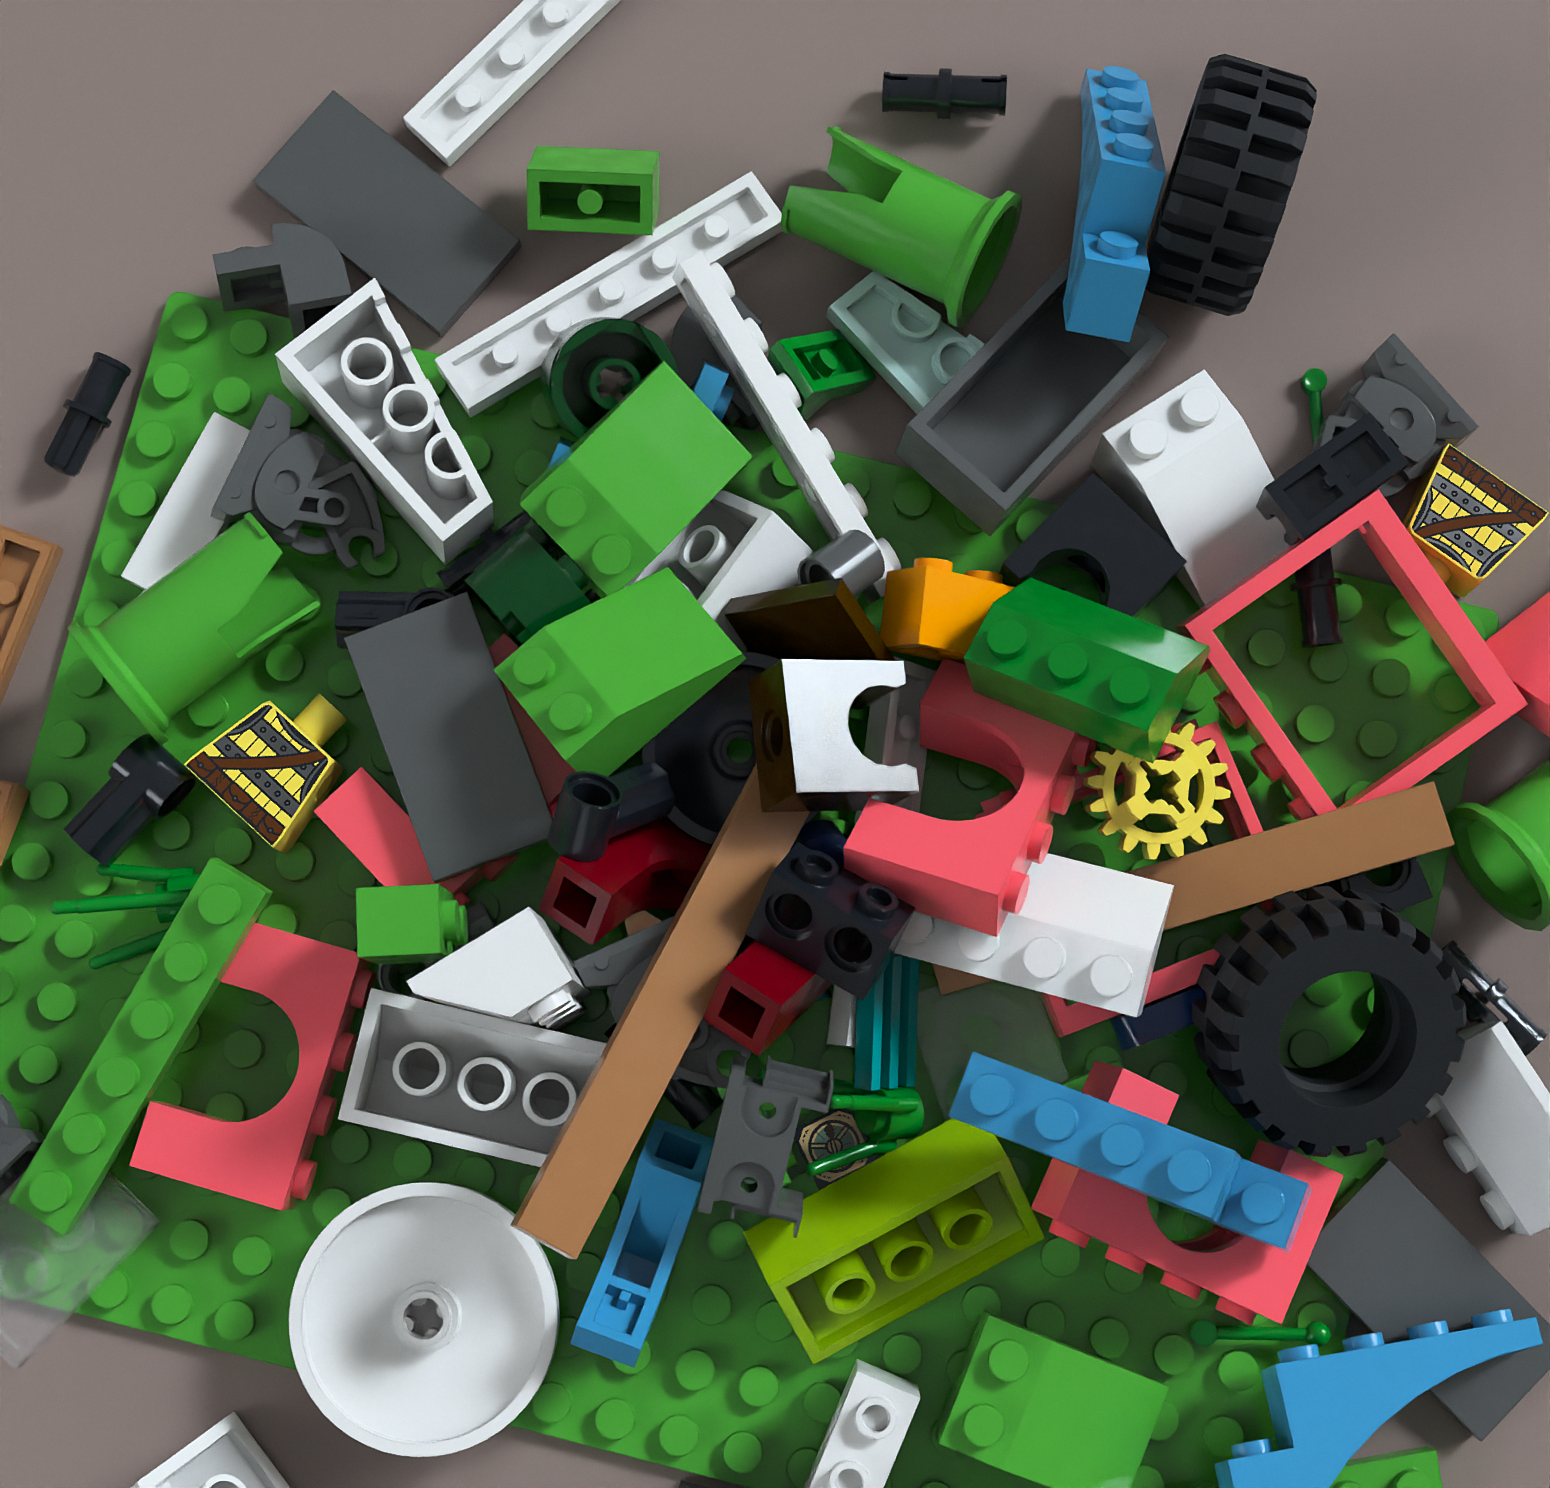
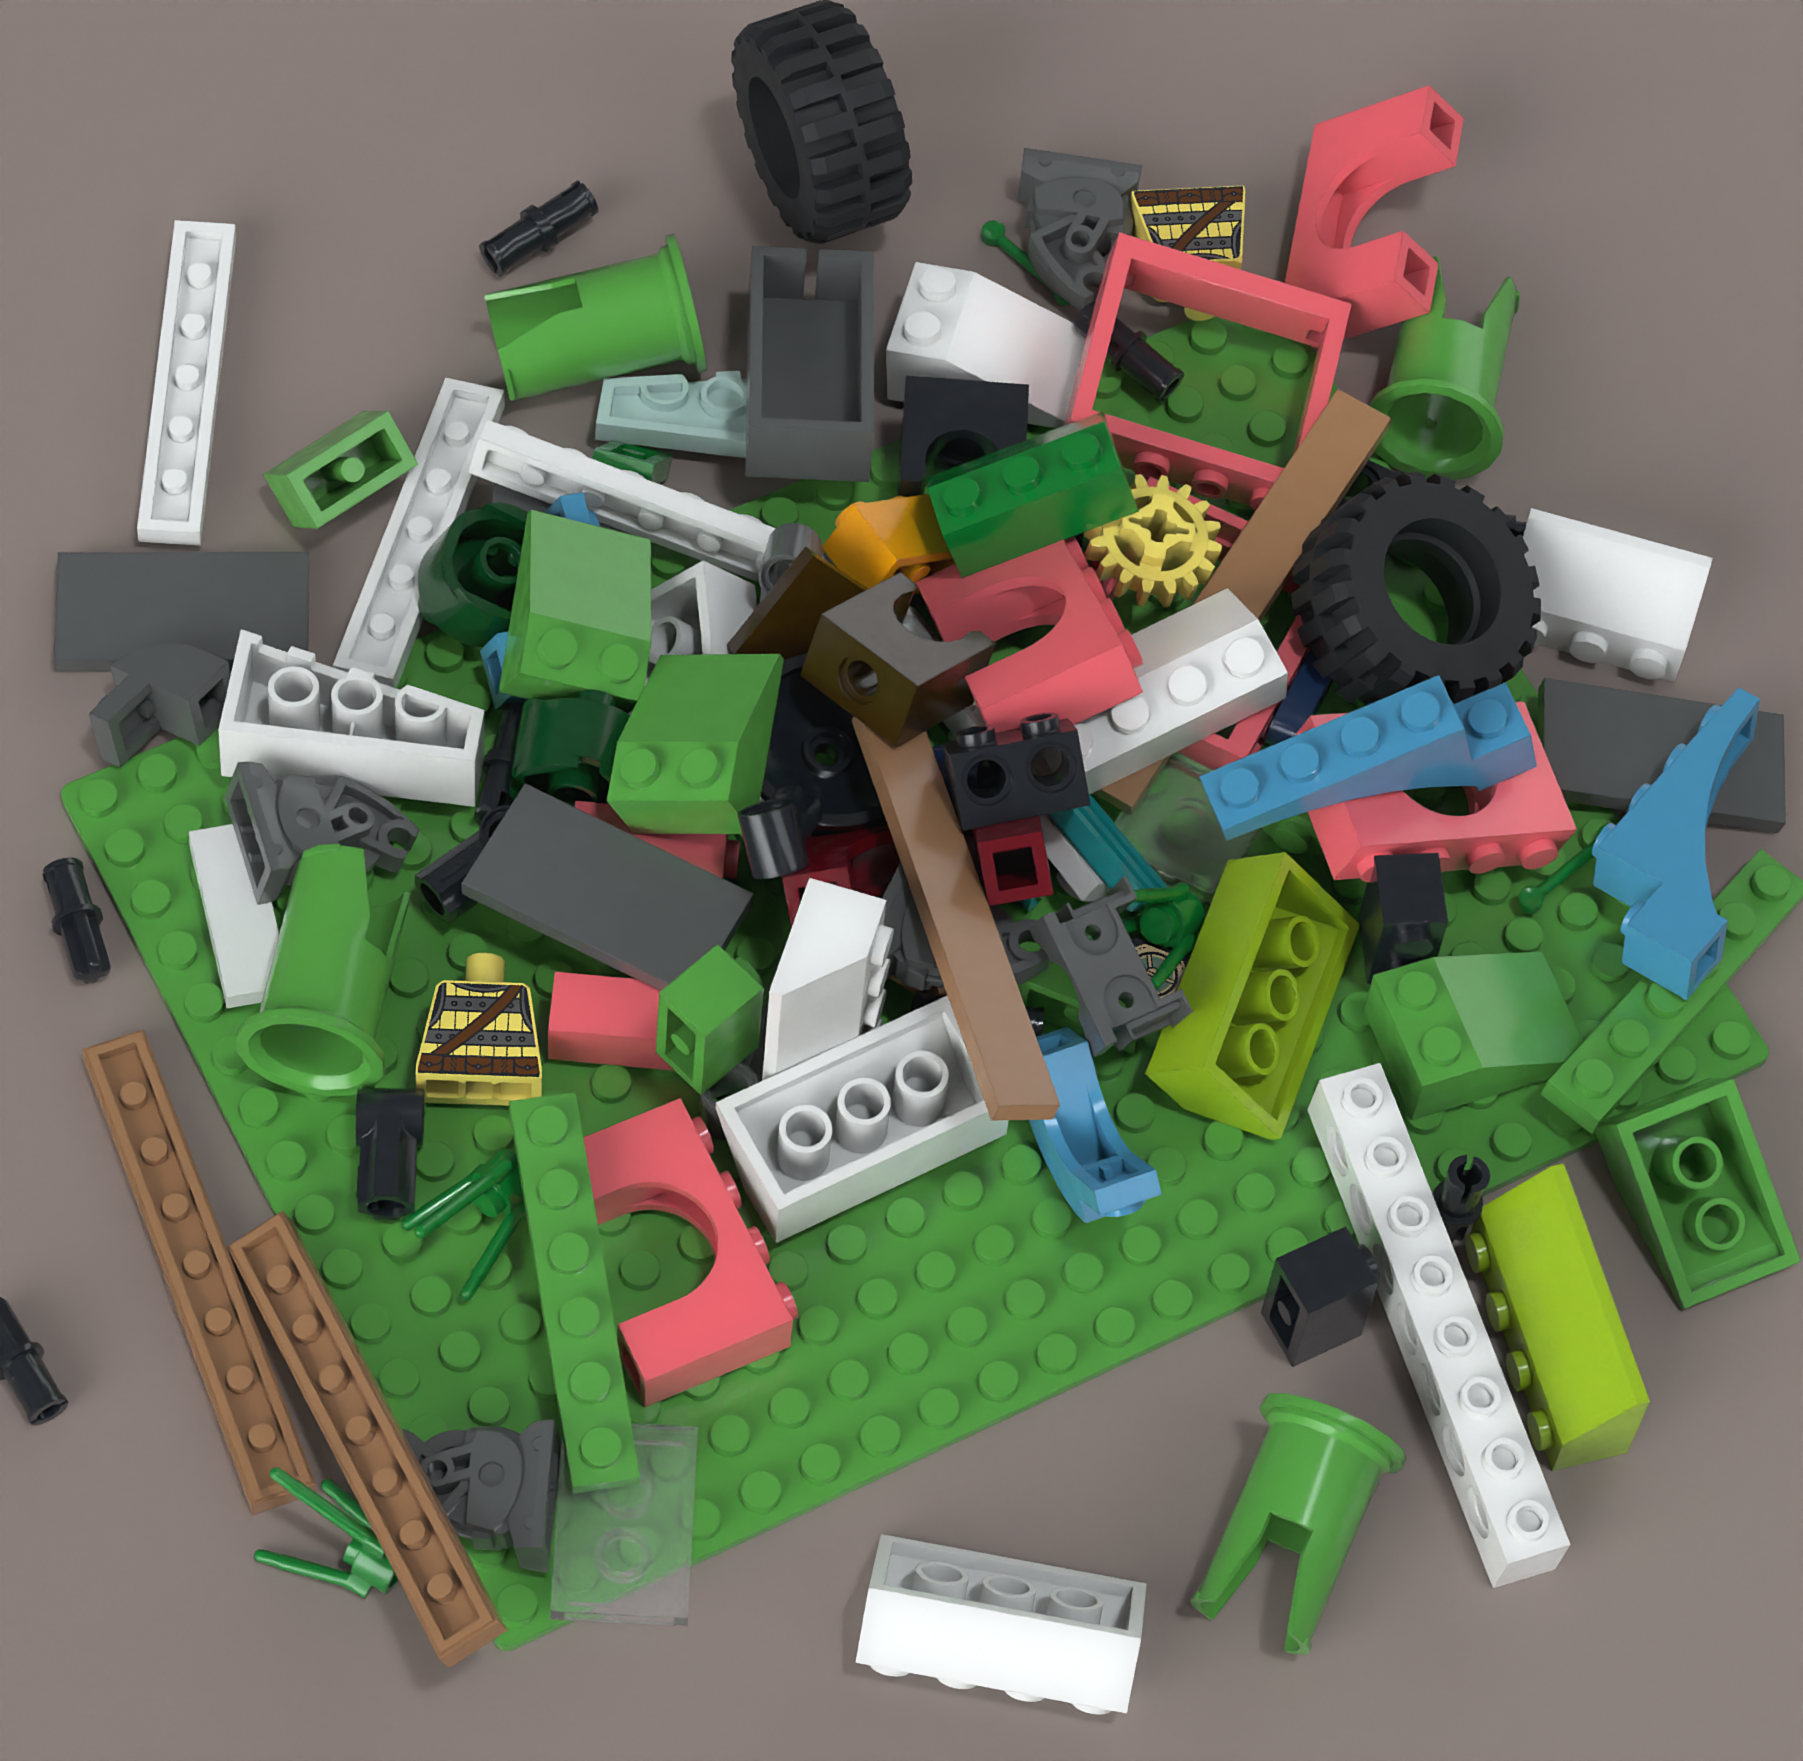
camera: 50 degrees left, 20 degrees down
(423, 1319) = (970, 1314): white dish -> none
(1061, 1286) = (1402, 912): none -> black brick
(1115, 204) = (756, 181): dark azure arch -> none
(1331, 479) = (1078, 260): black hinge -> none

